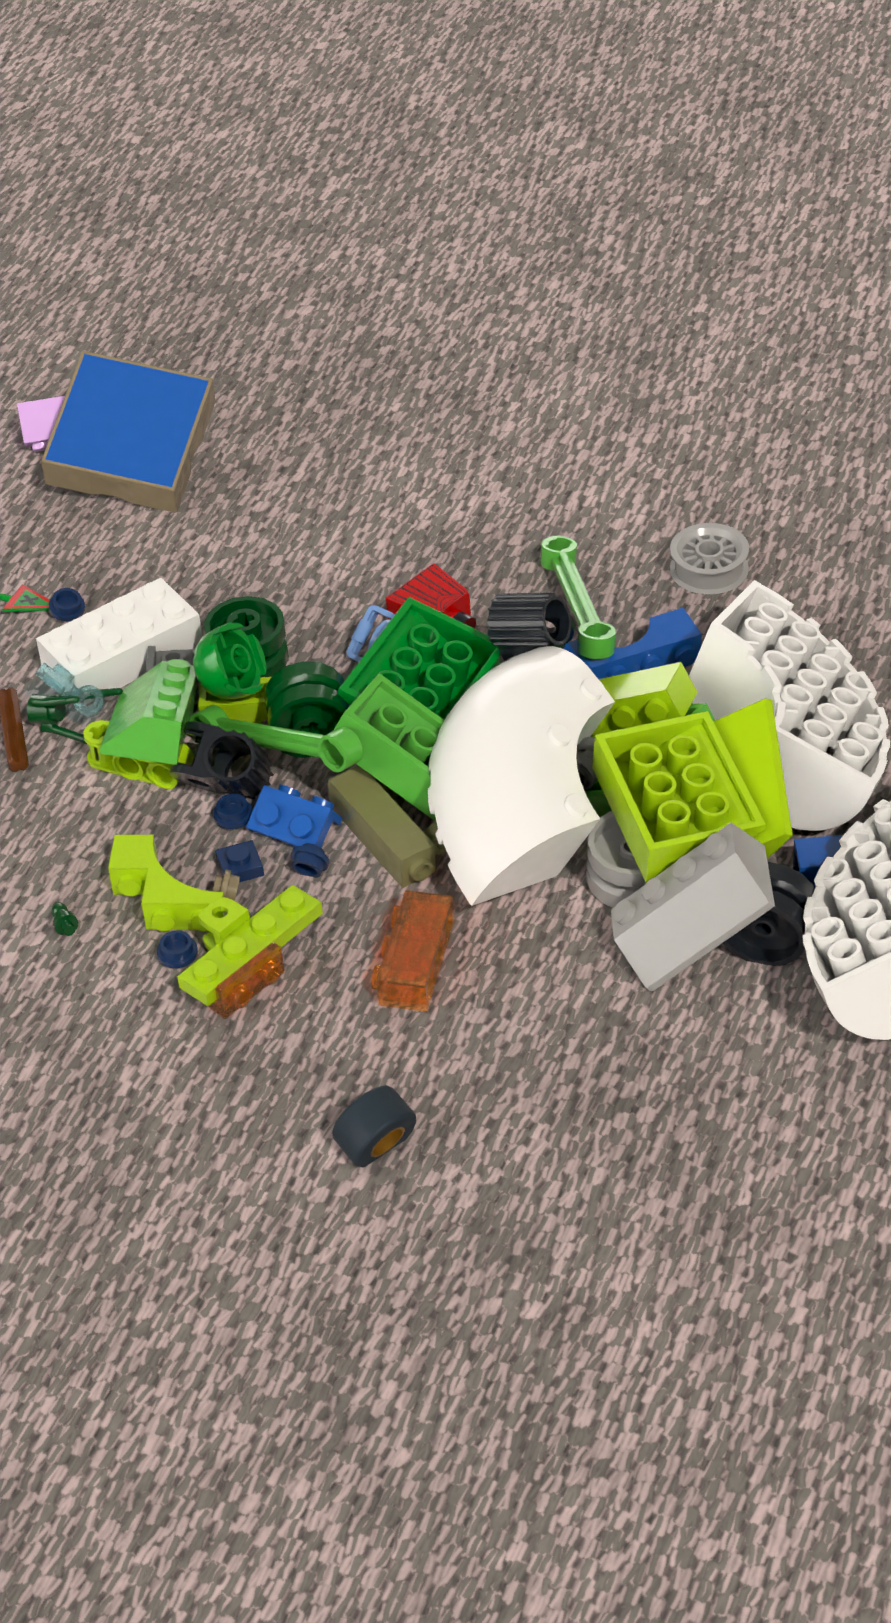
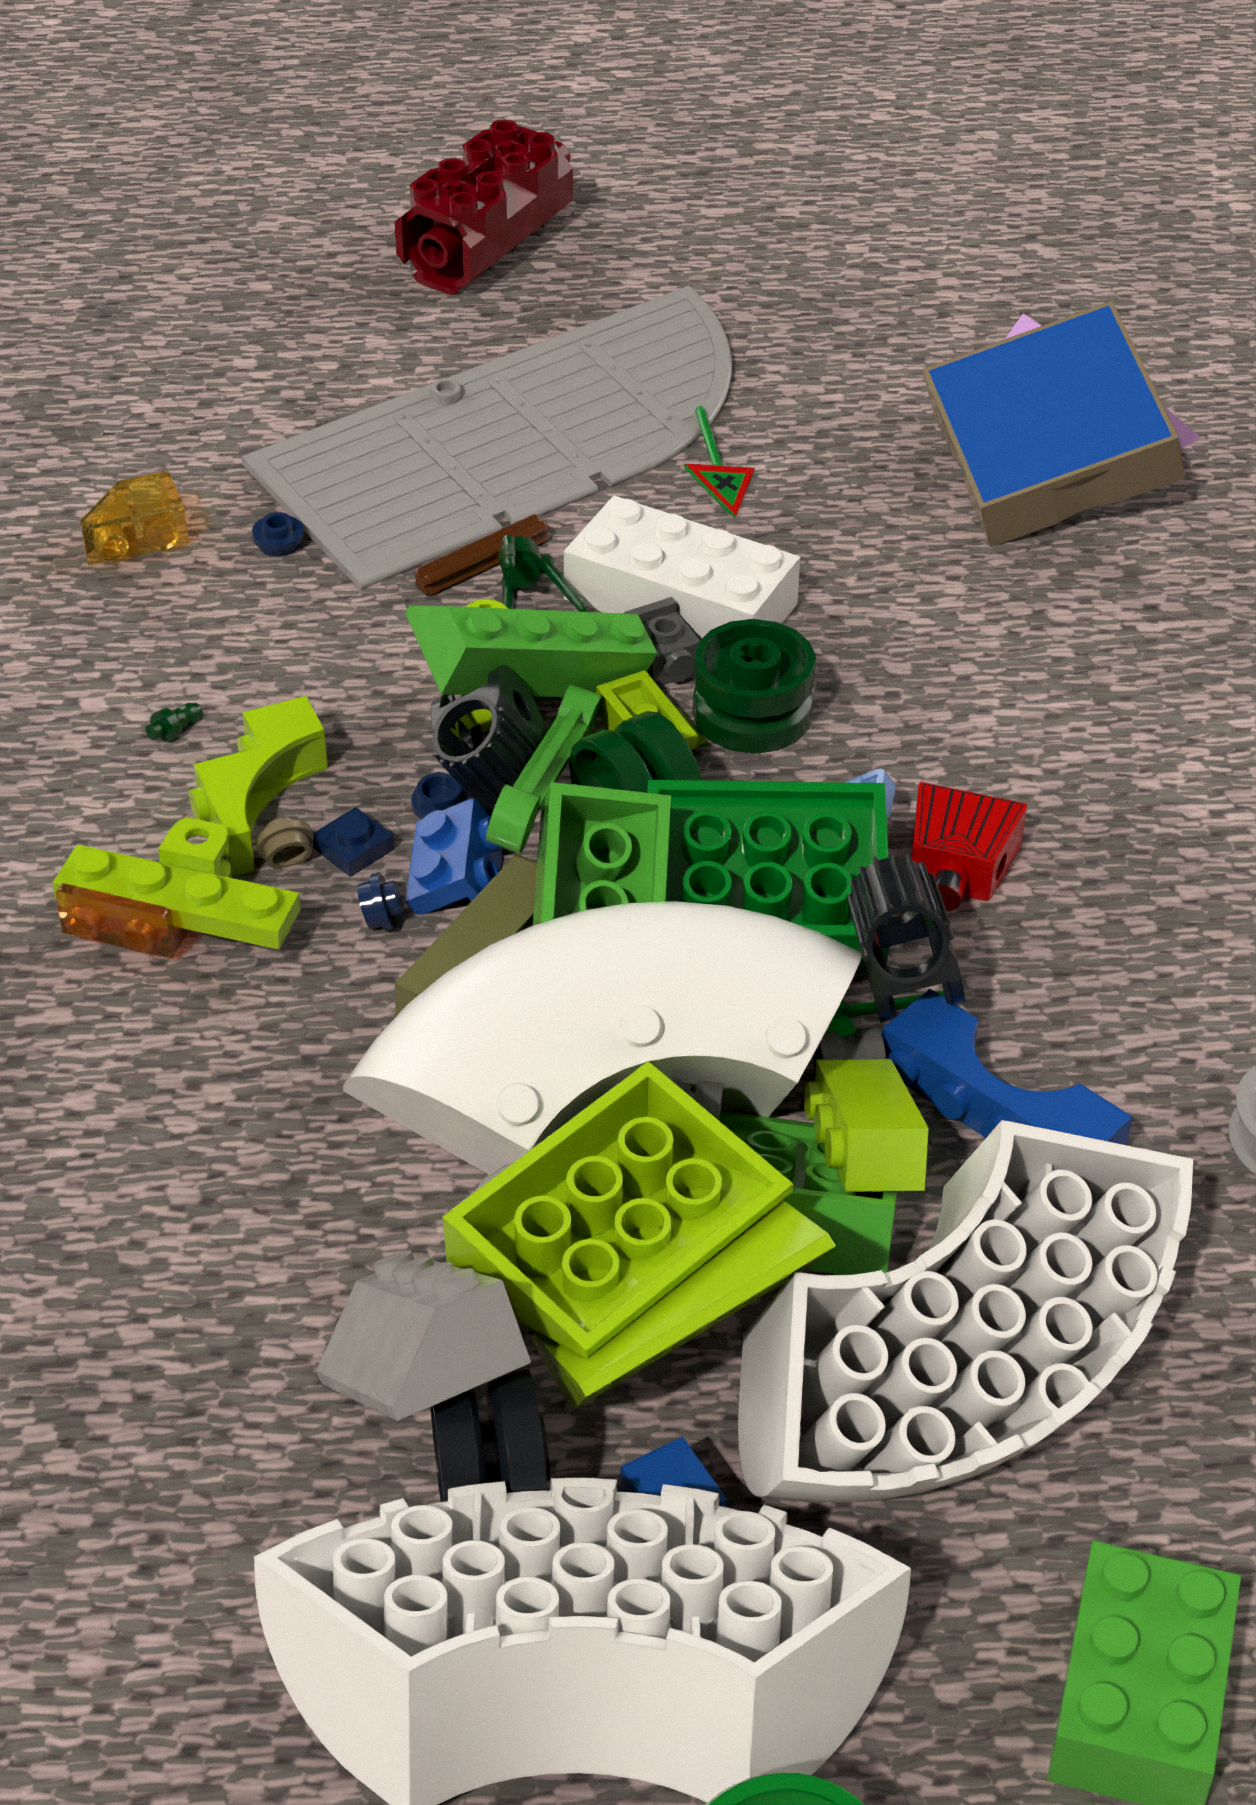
camera: 60 degrees right, 0 degrees up
(61, 681) = (541, 546): clear light blue plate -> none
(66, 605) = (730, 511): dark blue plate -> none
(177, 949) = (151, 833): dark blue plate -> none
(229, 662) = (650, 664): green cylinder -> none
(414, 950) = (253, 1071): clear orange brick -> none
(595, 637) = (1174, 945): bright green piece -> none

